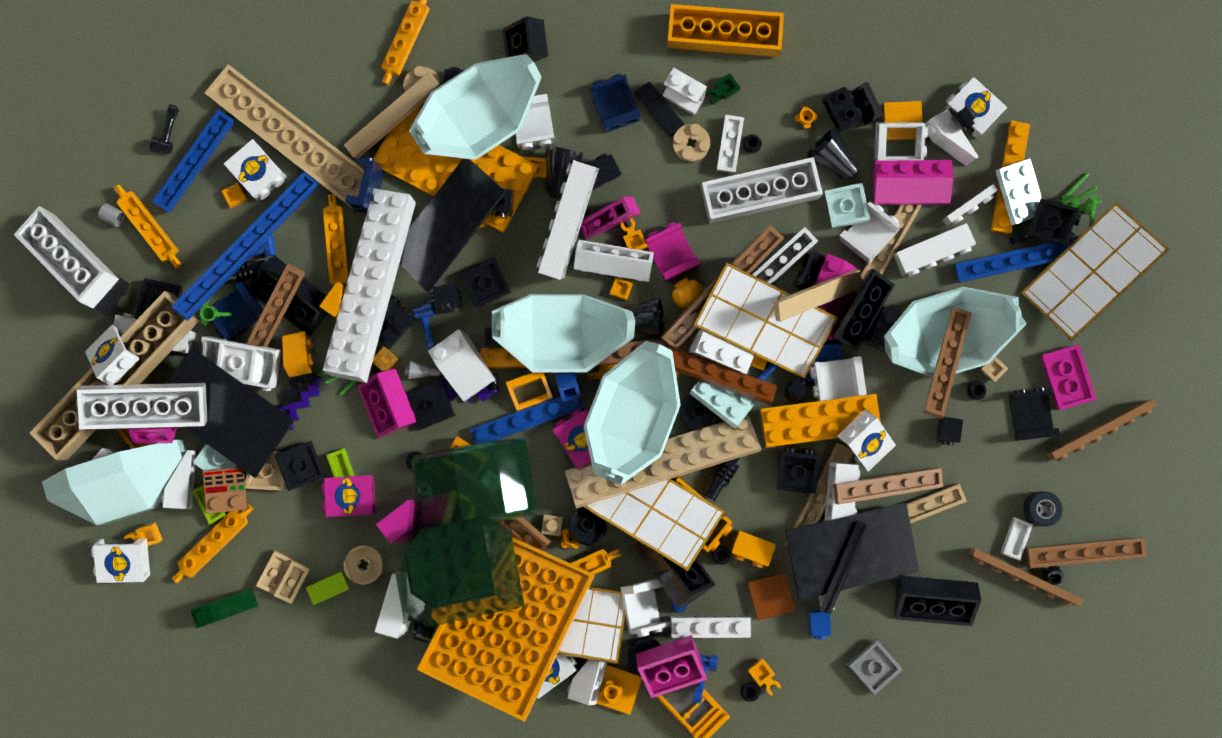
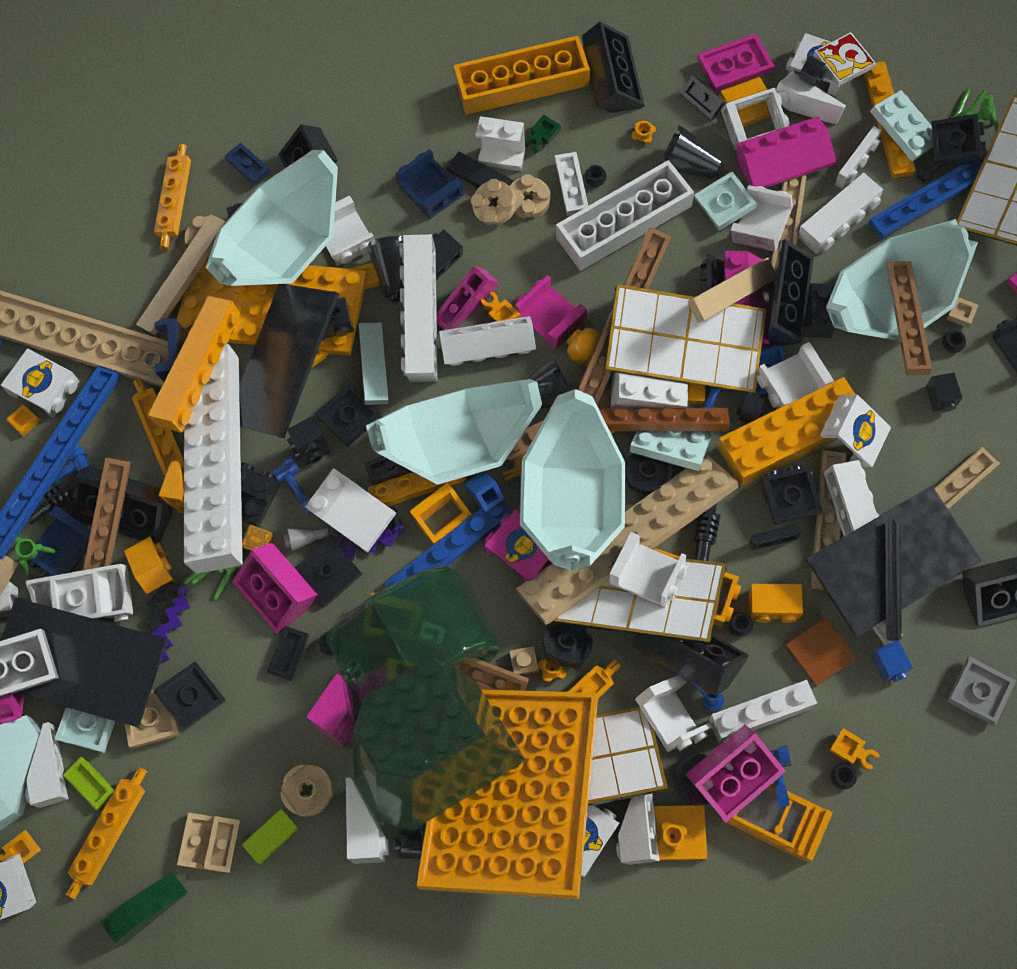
camera: 15 degrees left, 15 degrees down
(224, 490) = (103, 755): medium nougat slope -> none
(340, 464) = (243, 685): lime tile -> none
(349, 496) = (261, 710): dark pink panel -> none
(378, 206) = (194, 364): none -> light orange brick
(381, 456) = (288, 653): none -> black tile
(474, 30) = (247, 164): none -> dark blue plate
(518, 246) = (373, 363): none -> light aqua tile
(621, 288) = (506, 370): light orange tile -> none
(651, 137) = (483, 197): none -> tan plate
(664, 498) = (647, 572): none -> white panel
(773, 498) = (775, 536): none -> black tile
(786, 256) = (684, 265): white brick -> none
(802, 50) = (612, 69): none -> black slope
(842, 109) = (678, 109): black brick -> none
(888, 485) = (901, 472): medium nougat plate -> none
(906, 80) = (735, 62): none -> dark pink plate
(994, 115) = (845, 59): none -> tile

